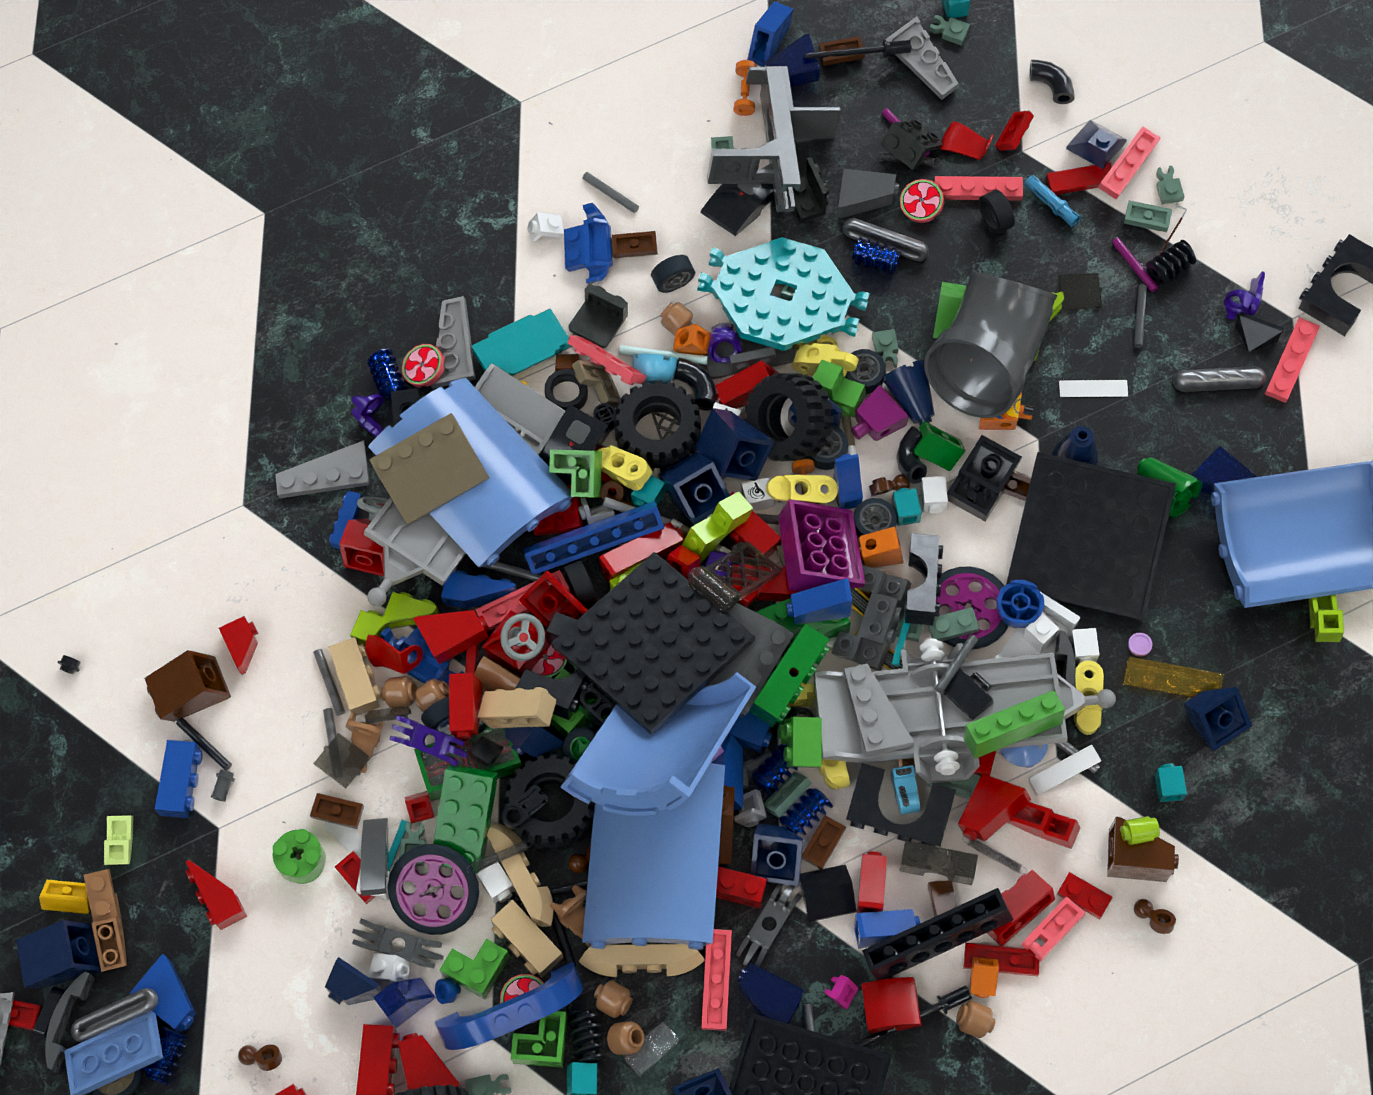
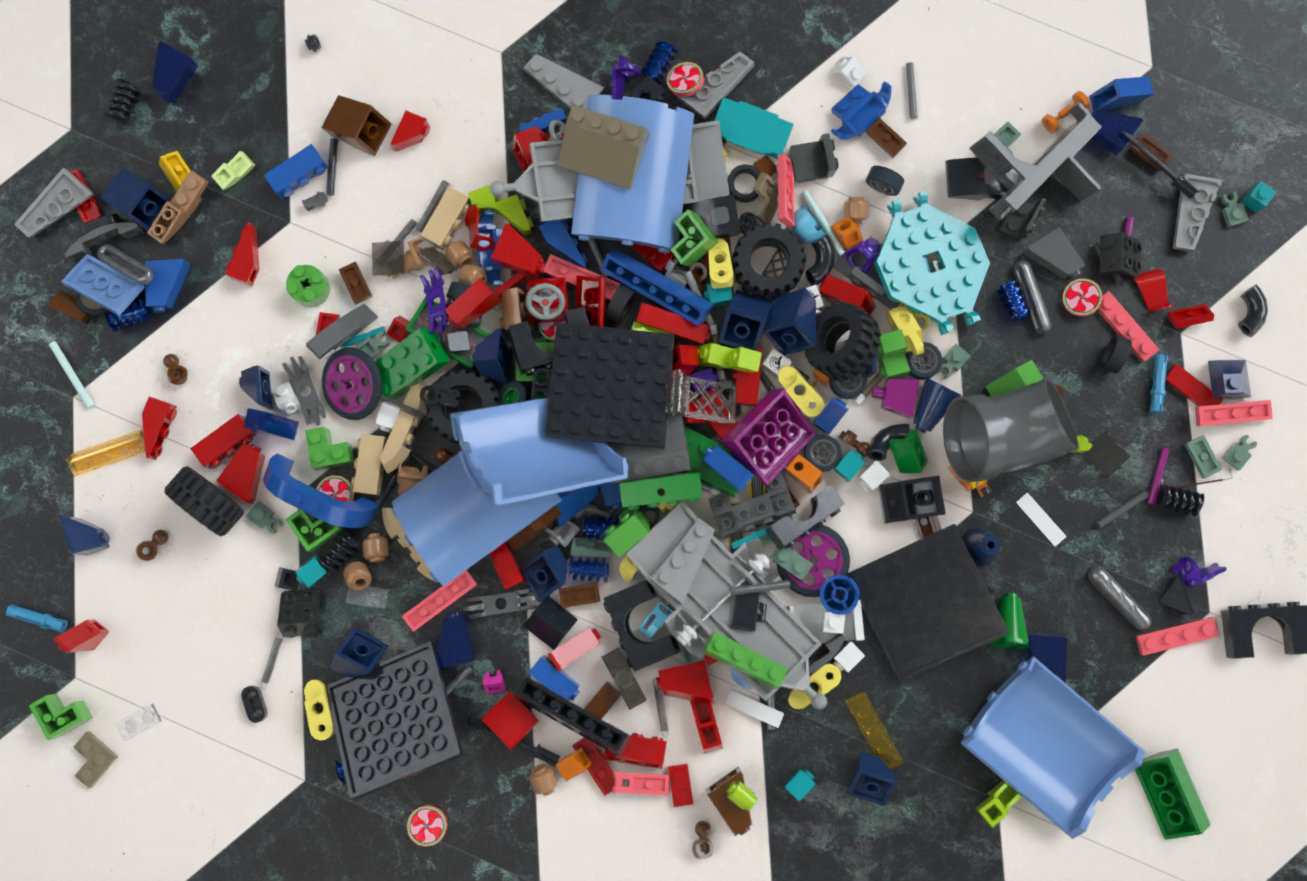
camera: 50 degrees right, 15 degrees up
(446, 990) = (299, 444): blue tile -> none
(517, 708) = (496, 338): tan brick -> none
(1140, 644) = (881, 690): lavender piece -> none

